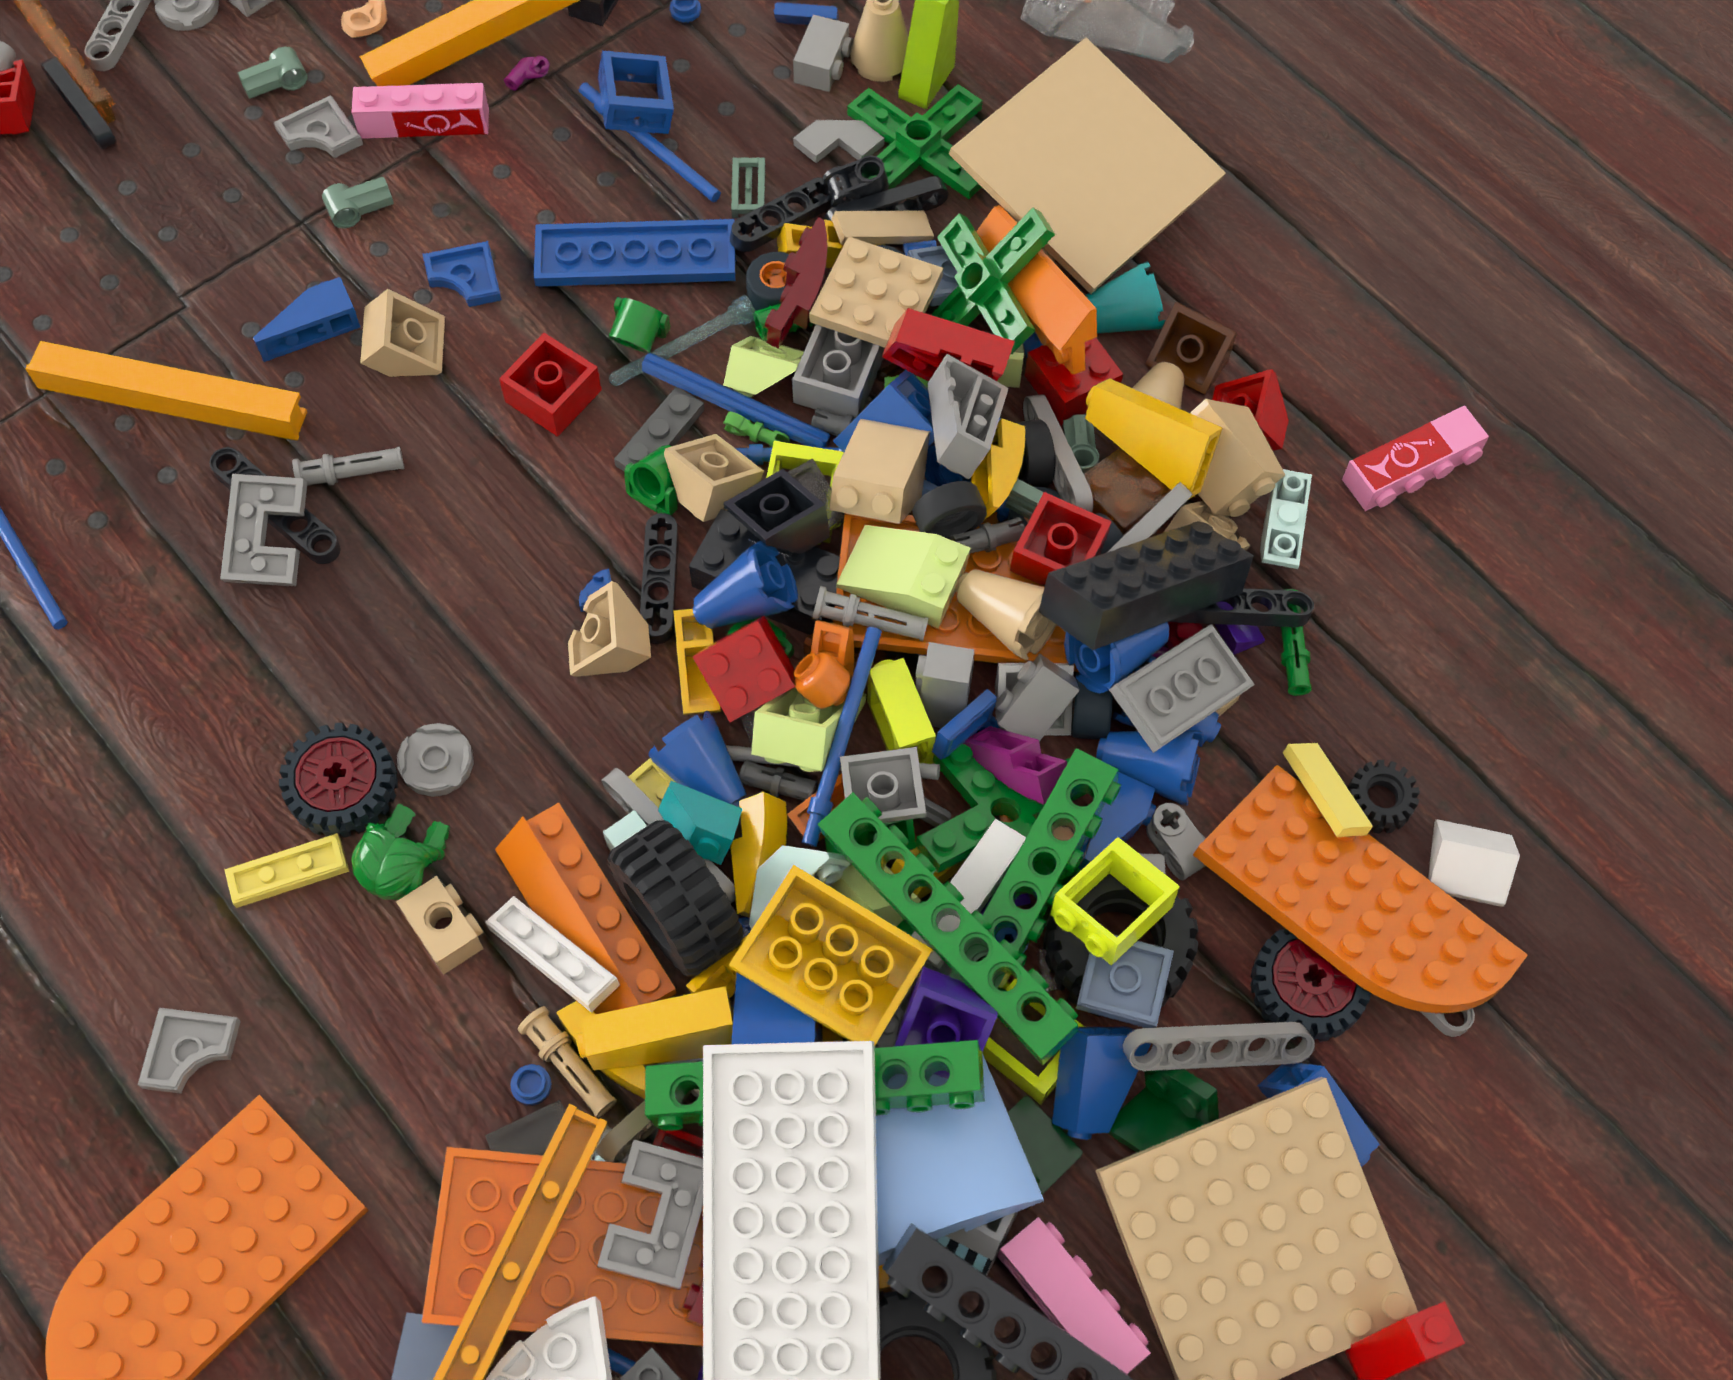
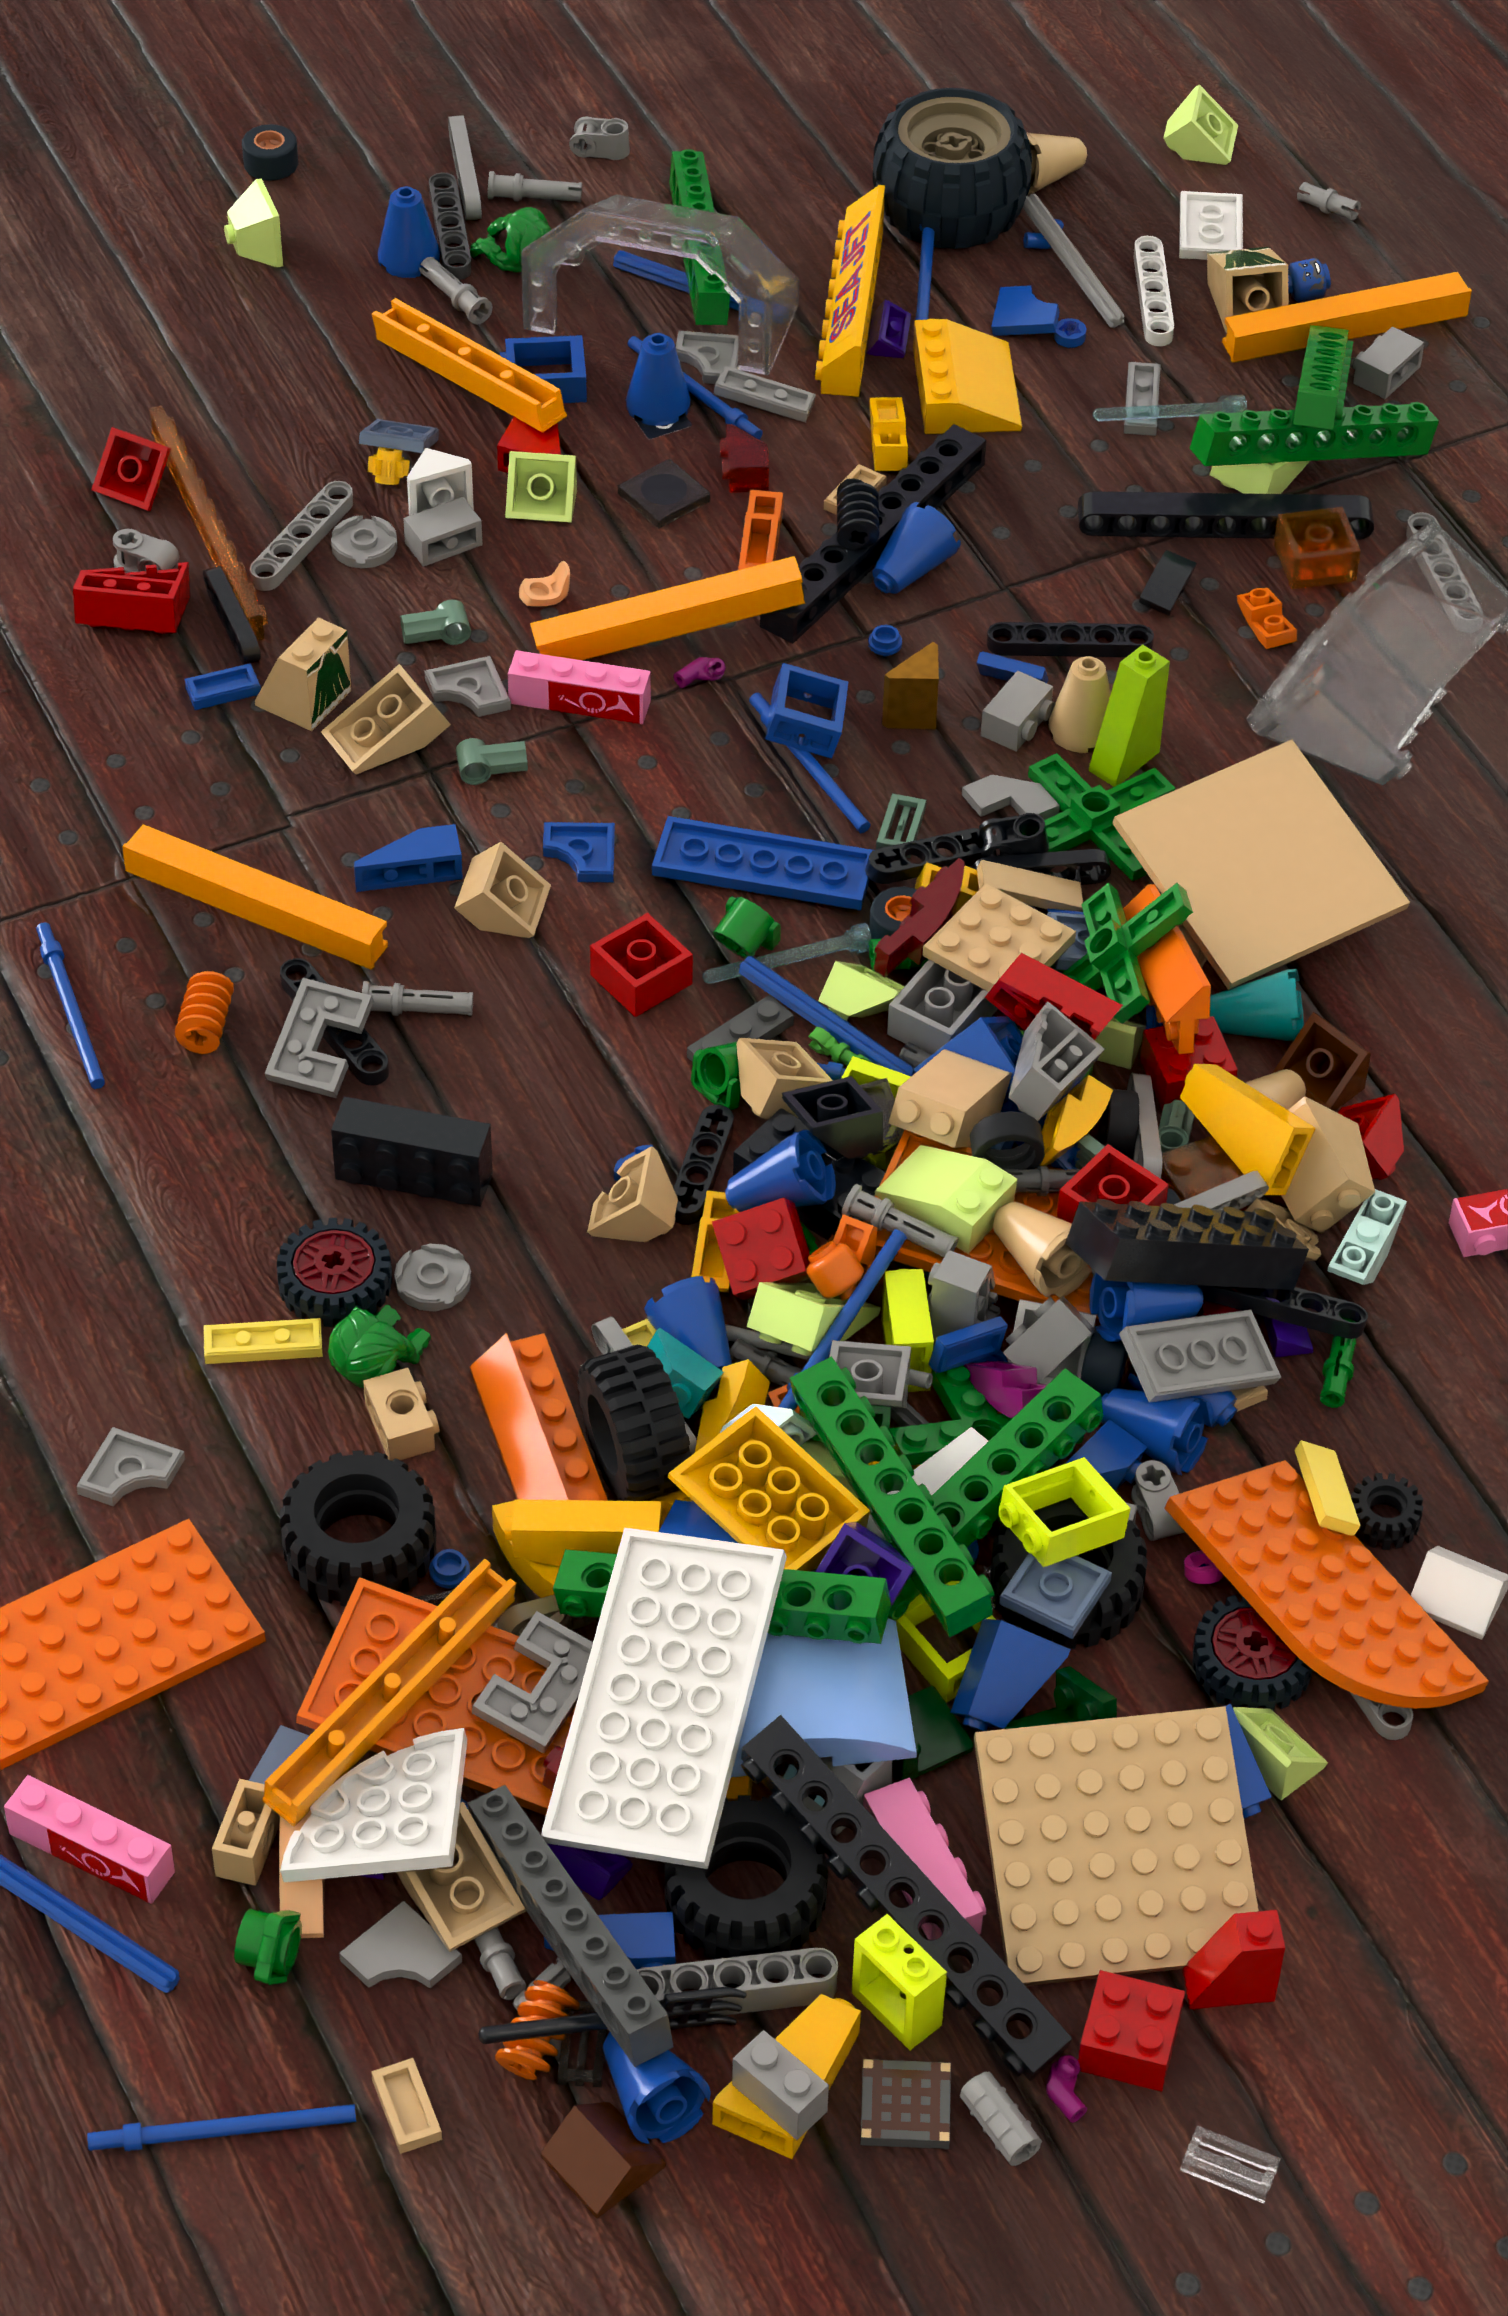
camera: 15 degrees right, 15 degrees down
(87, 177) = (222, 686): none -> blue tile
(146, 526) = (204, 1012): none -> orange piece
(165, 152) = (309, 676): none -> tan slope
(249, 184) = (385, 723): none -> tan slope
(382, 635) = (412, 1151): none -> black brick
(400, 1031) = (357, 1487): none -> black tyre
(552, 954) = (500, 1457): white tile -> none
(556, 1047) = (483, 1542): tan pin -> none
(727, 54) = (912, 691): none -> pearl gold slope
(1204, 1037) = (1118, 1657): light grey beam -> none
(1234, 903) = (1201, 1569): none -> dark pink tile
(1365, 1081) = (1279, 1751): none -> yellowish green slope

